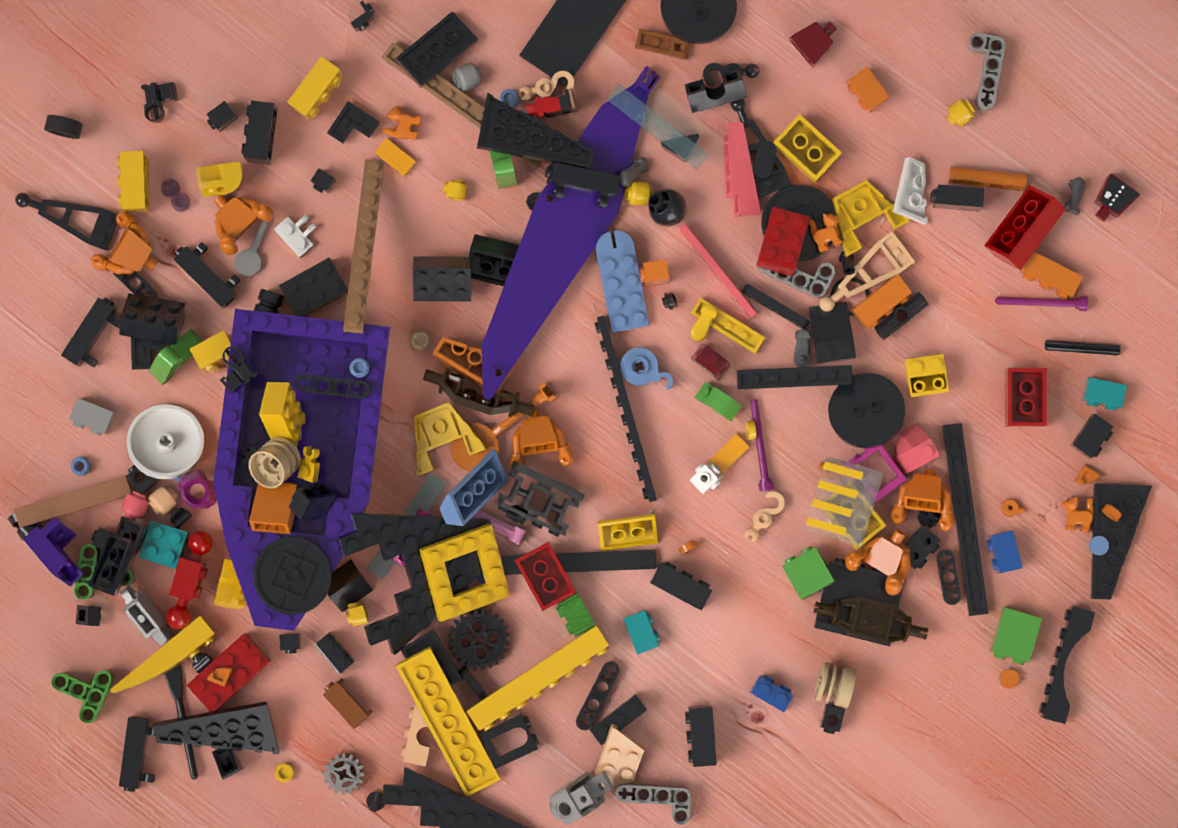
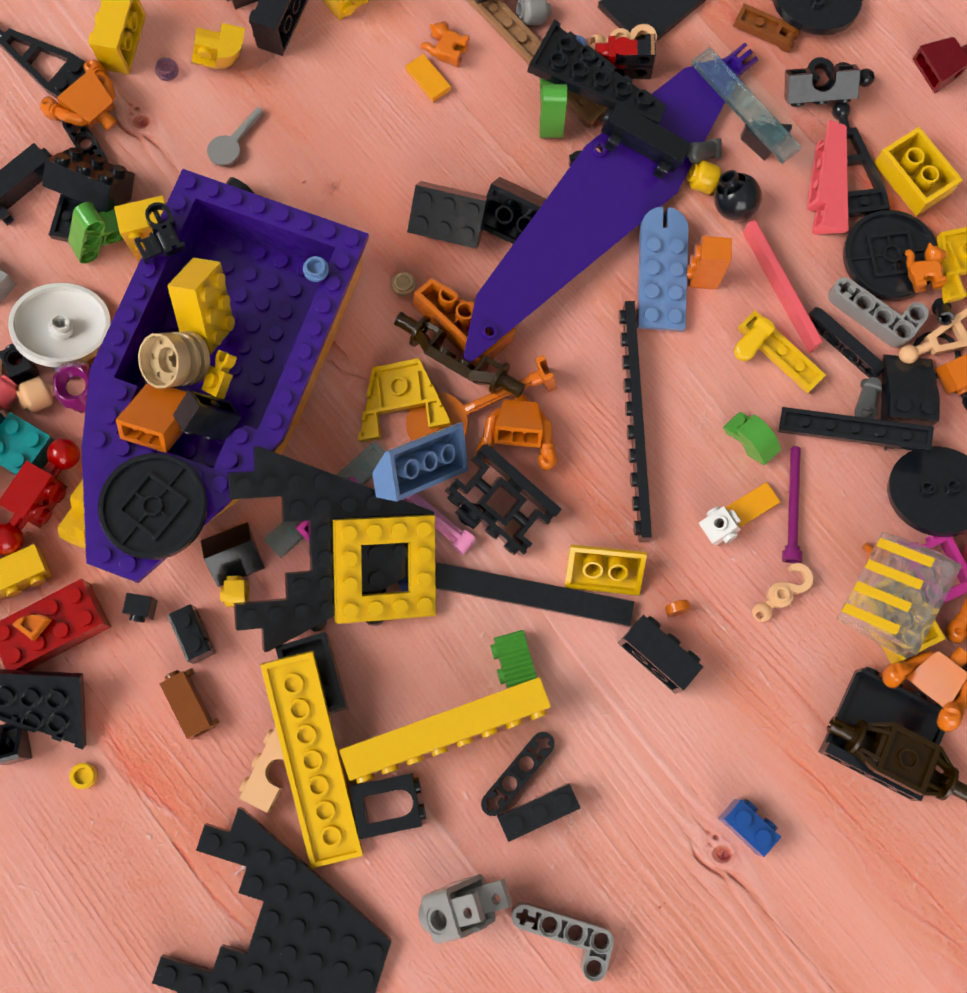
camera: 10 degrees right, 10 degrees down
(170, 188) = (158, 50): plate -> none
(179, 517) = (50, 419): black plate -> none
(201, 661) = (18, 602): black plate -> none
(204, 276) = (164, 146): black brick -> none
(236, 218) = (226, 98): orange torso -> none
(294, 237) = (286, 136): white hinge -> none
(314, 288) = (297, 186): black brick -> none
(322, 181) = (337, 81): black plate -> none
(332, 388) = (277, 280): black beam -> none
(347, 765) = (167, 803): light grey gear -> none
(352, 118) = (386, 25): black plate -> none
(363, 246) = (360, 151): medium nougat plate -> none
(374, 801) = (188, 844): black plate -> none
(455, 190) = (488, 126): yellow plate -> none
(468, 652) = (363, 675): black gear -> none
(473, 683) = (359, 716): black tile -> none
(545, 576) = (487, 598): red brick -> none
(619, 757) = (529, 865): light nougat wing -> none
(641, 631) = (594, 702): teal brick -> none
(650, 372) = (670, 387): medium blue piece -> none
(669, 300) = (715, 307): black plate -> none
(701, 736) = (645, 863): black brick -> none
(710, 361) = (754, 387): dark red torso -> none
(750, 429) = (786, 481): yellow tile -> none
(764, 159) = (864, 172): black tile -> none
(782, 241) = (873, 263): red brick -> none
(808, 572) = (829, 677): bright green piece -> none
(829, 710) = (835, 880): black brick -> none
(835, 685) = (841, 836): tan wheel -> none

